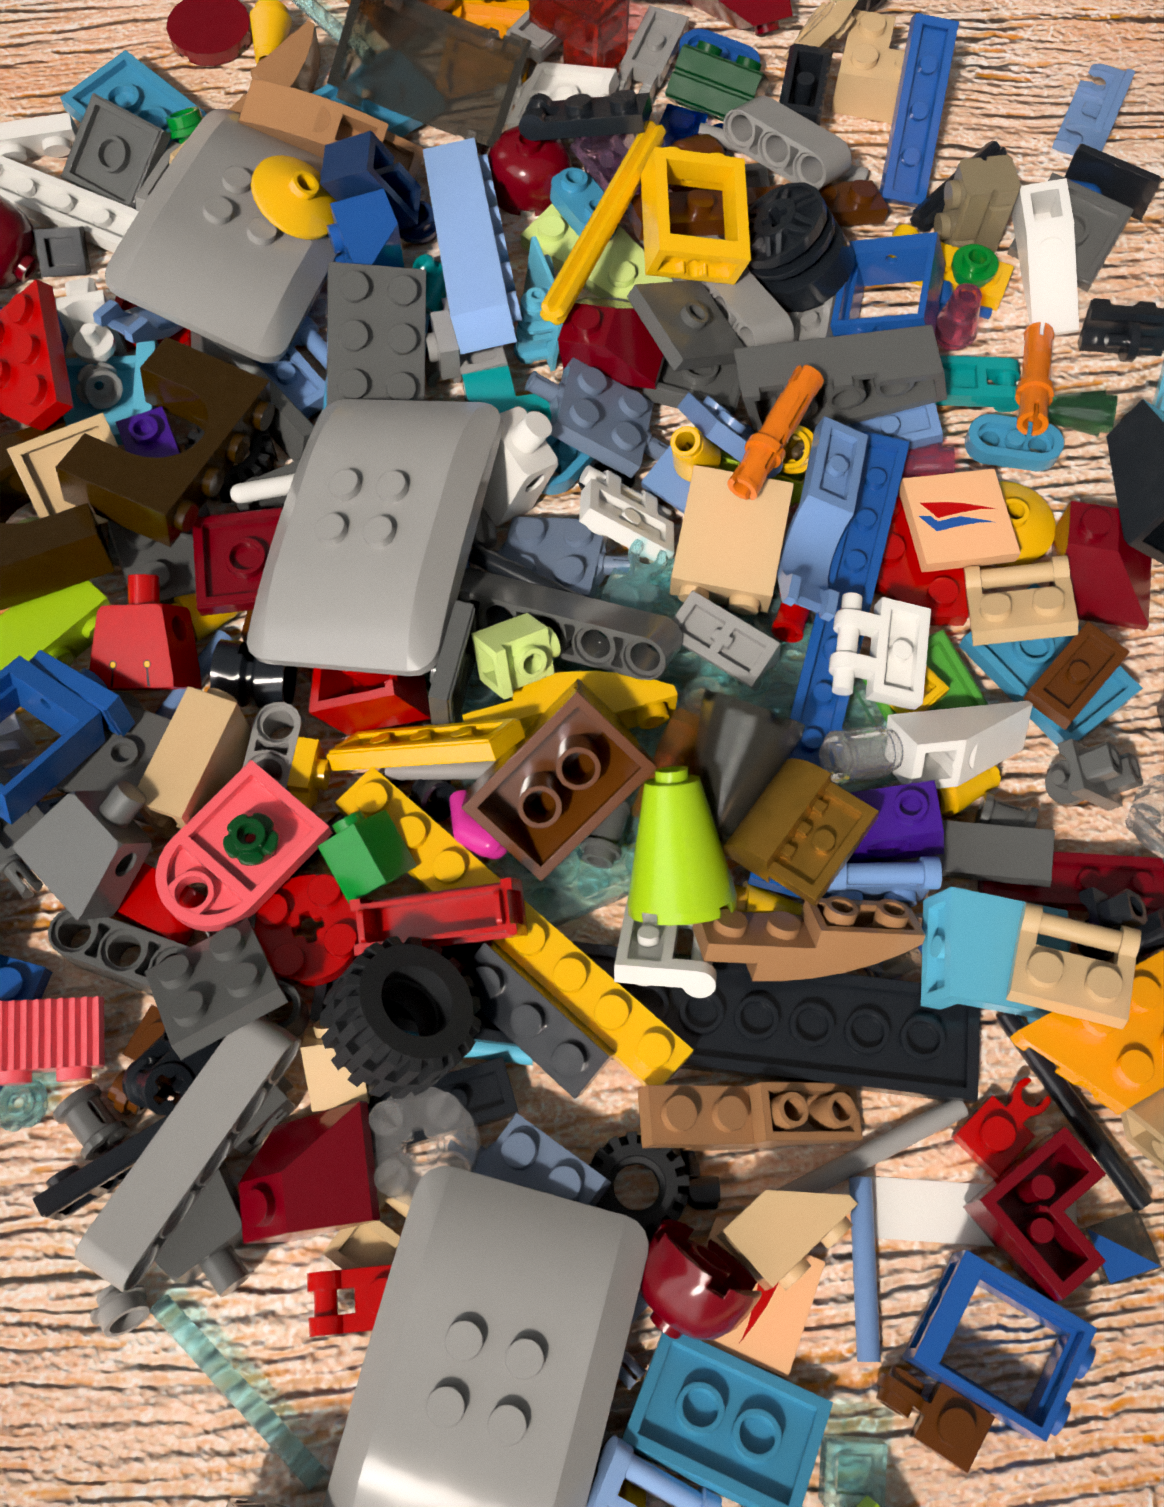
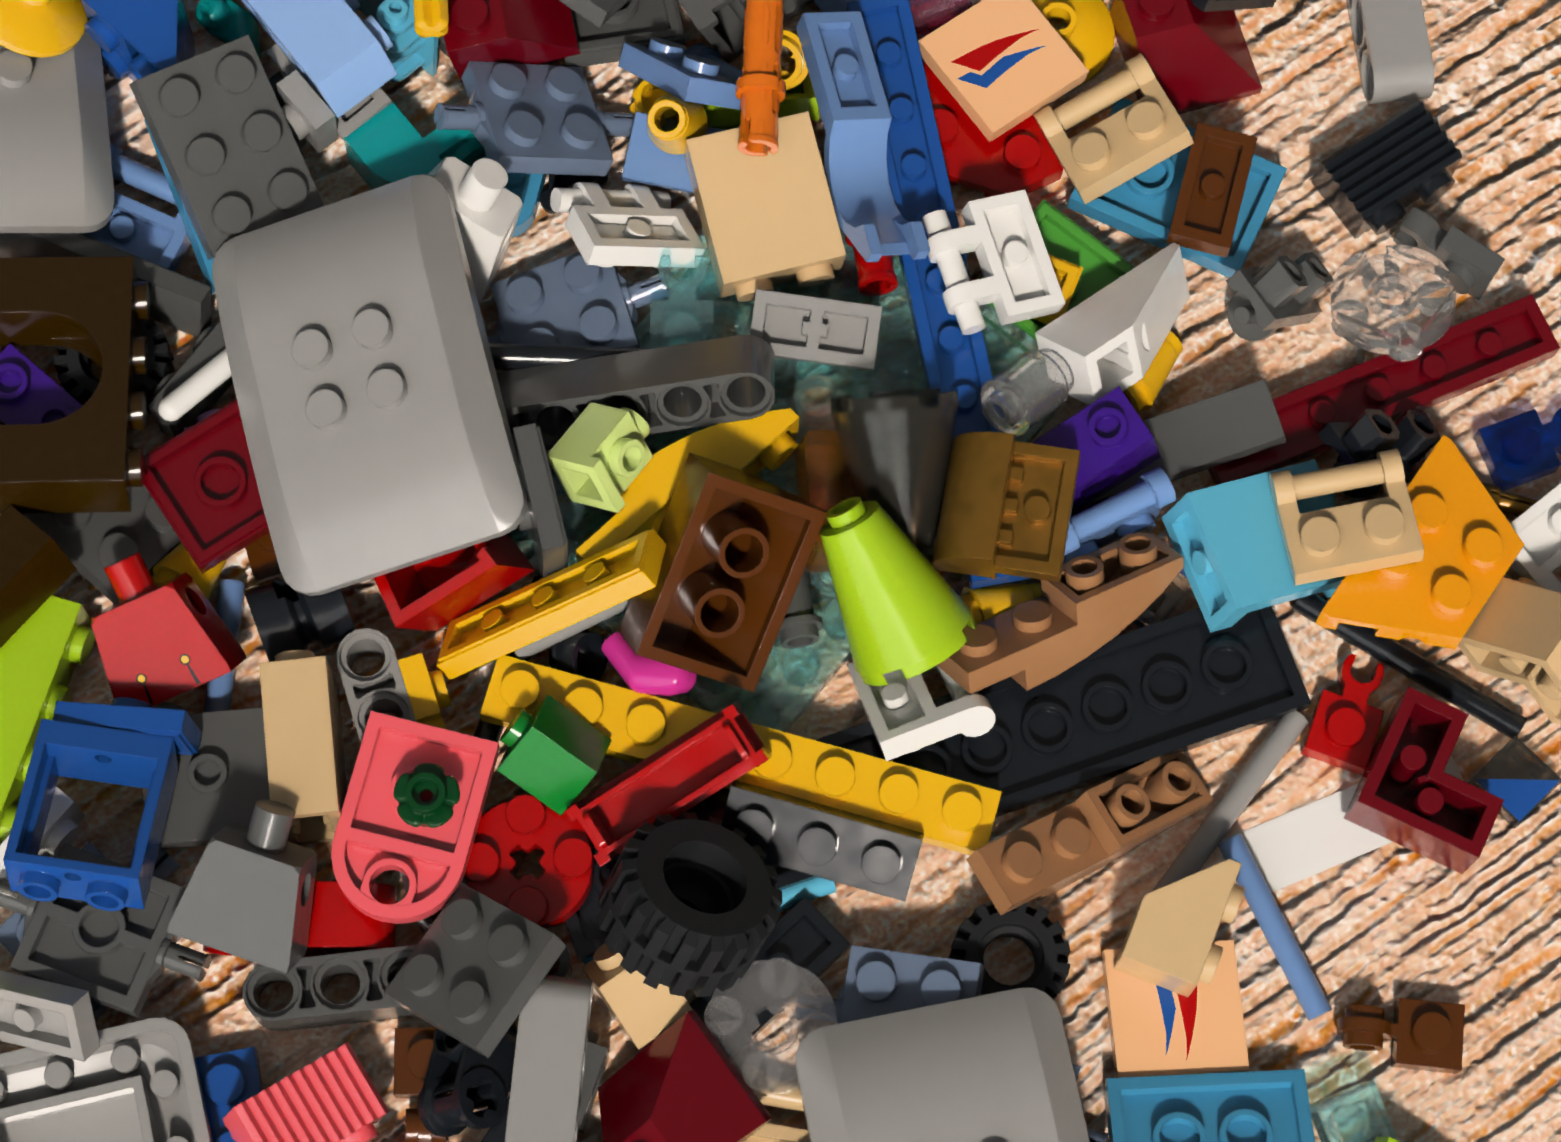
camera: 30 degrees left, 5 degrees up
(695, 1286) = (1119, 1023): dark red cylinder -> none
(703, 1190) = (1079, 929): black hand -> none
(999, 813) = (1200, 384): dark grey bush -> none
(1069, 1359) = (1372, 925): blue window -> none

